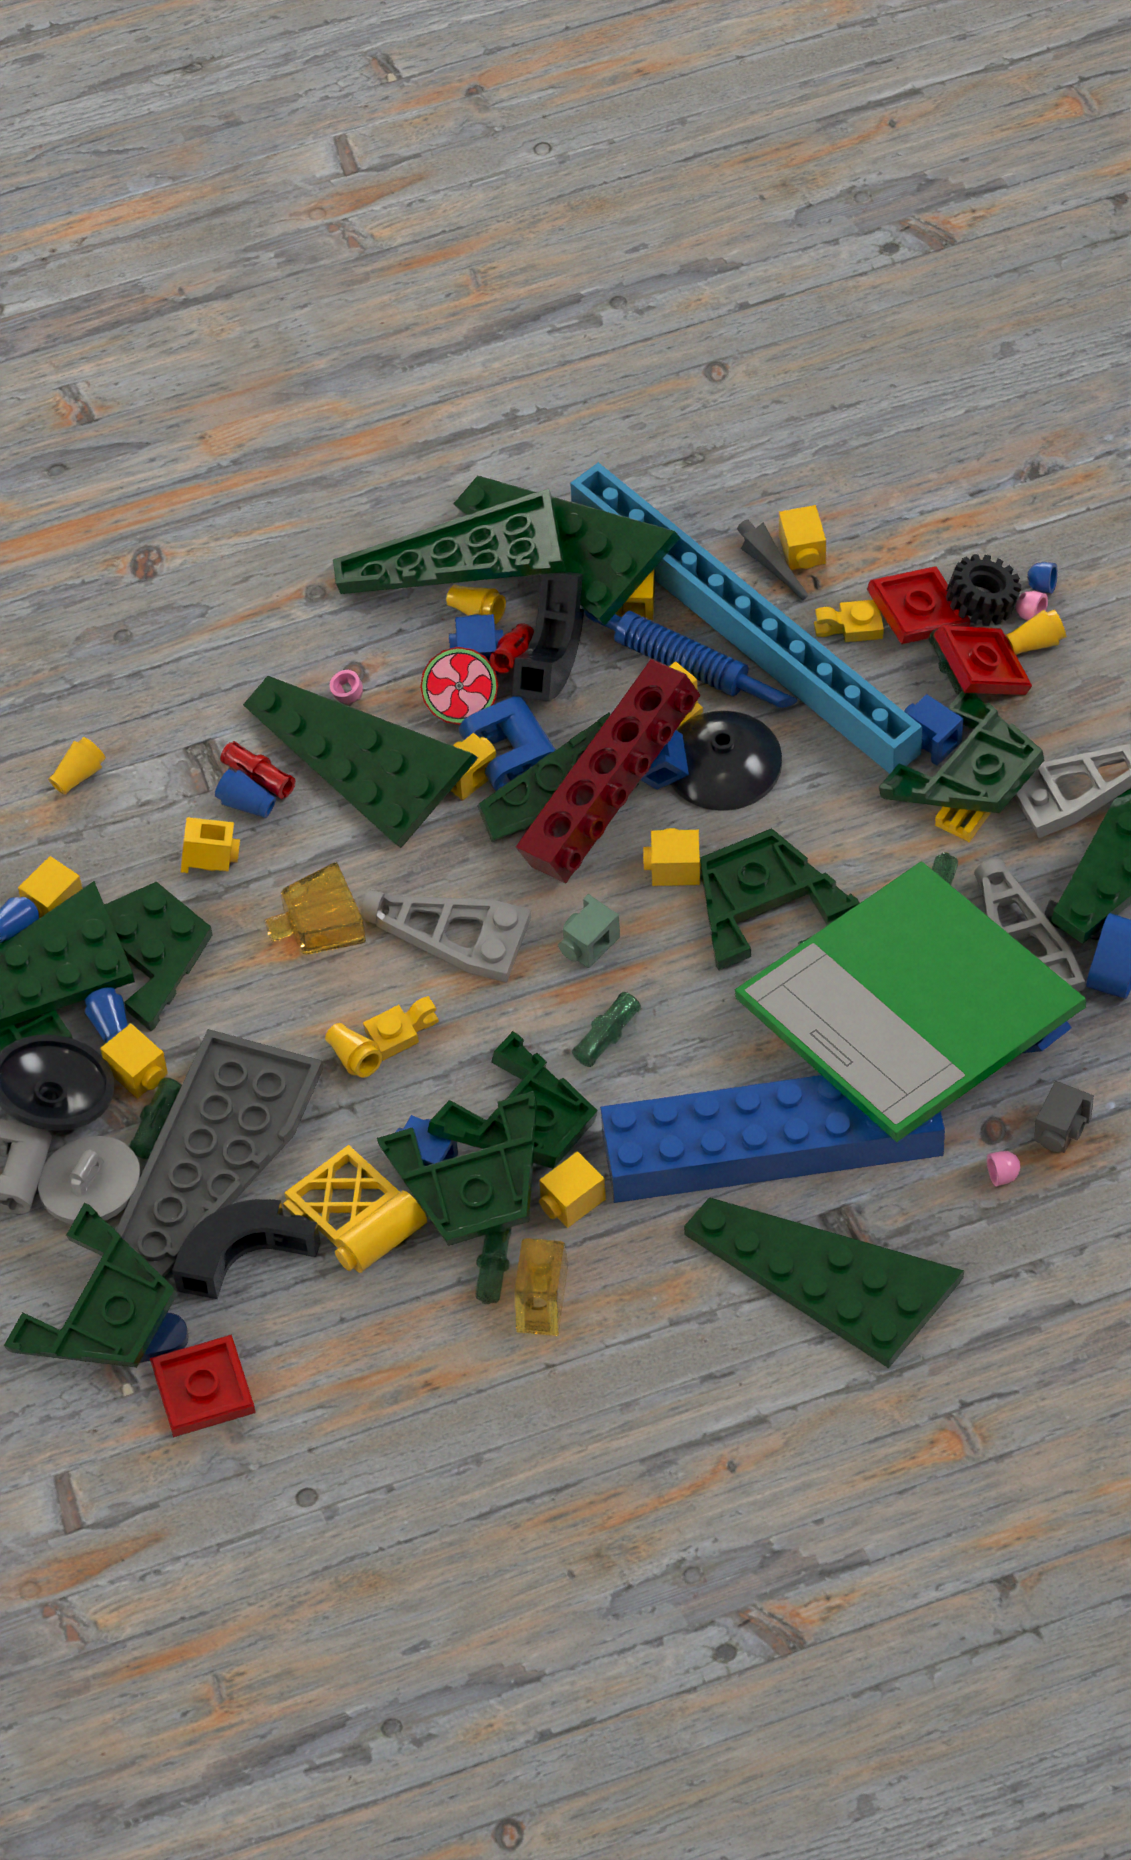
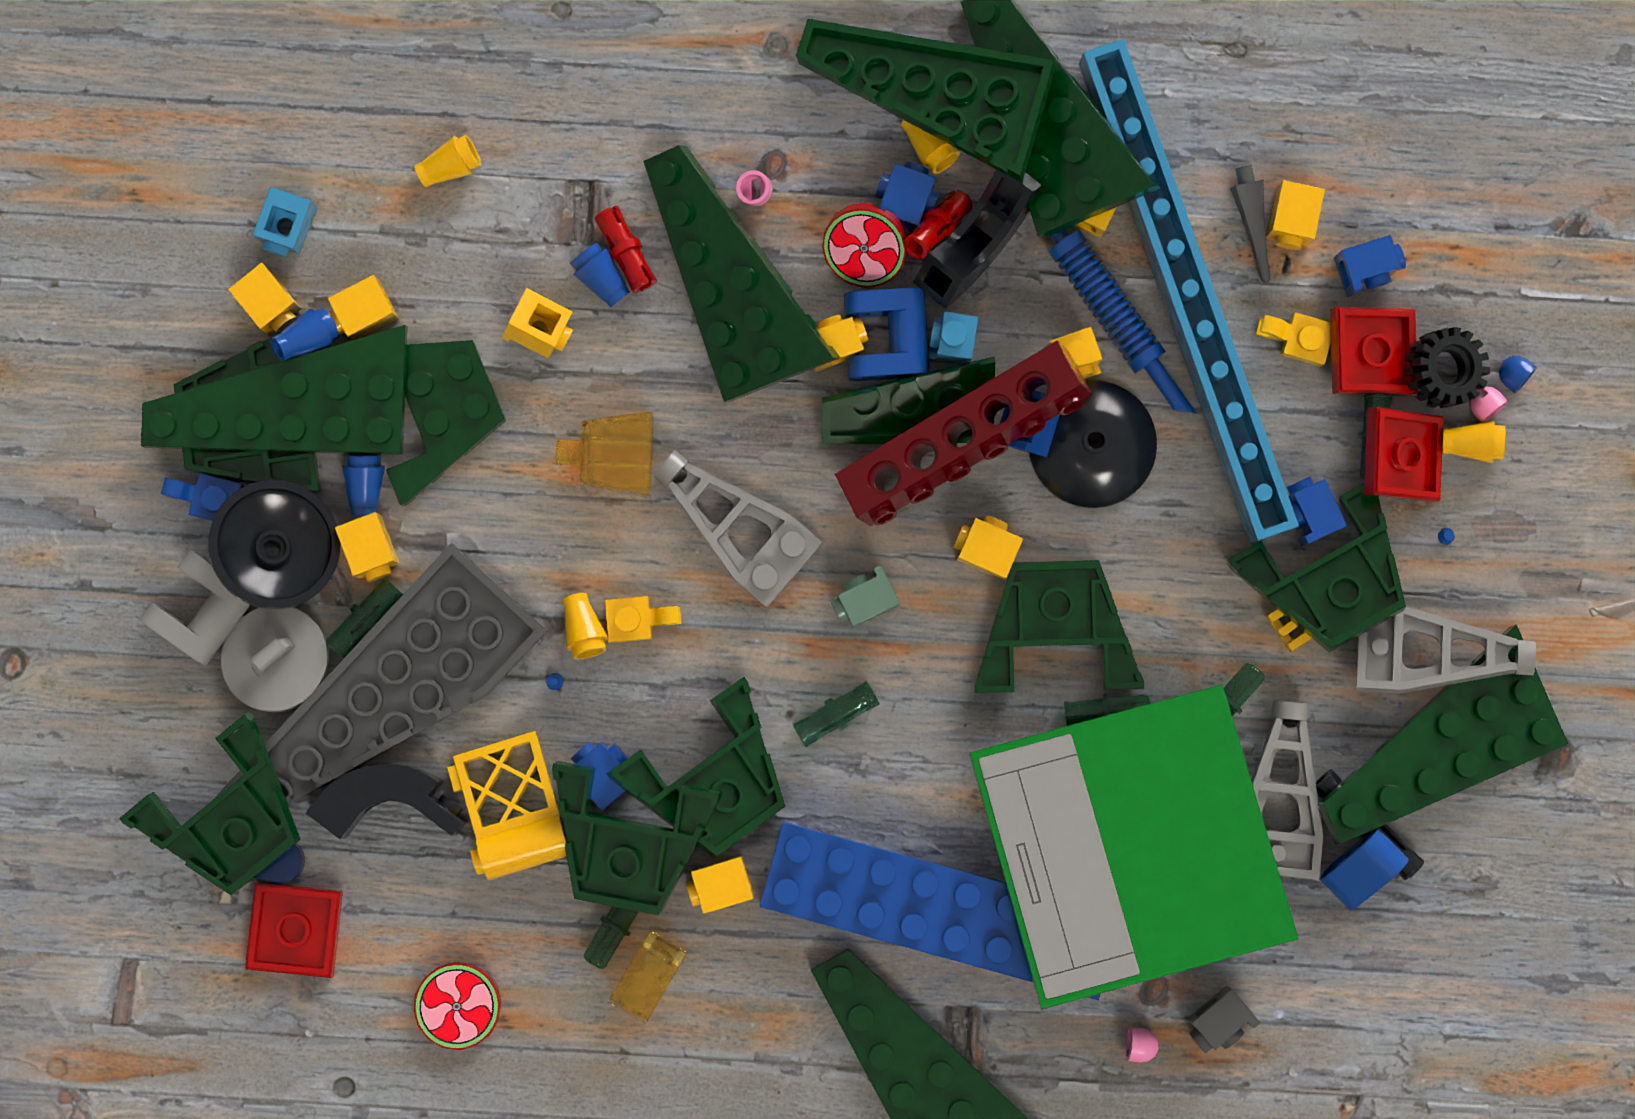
camera: 20 degrees right, 30 degrees up
(348, 1106) = (554, 681): none -> blue piece
(380, 1384) = (457, 1006): none -> tile
(565, 718) = (953, 338): none -> dark azure brick
(880, 547) = (1369, 264): none -> blue brick
(1052, 711) = (1446, 536): none -> blue piece

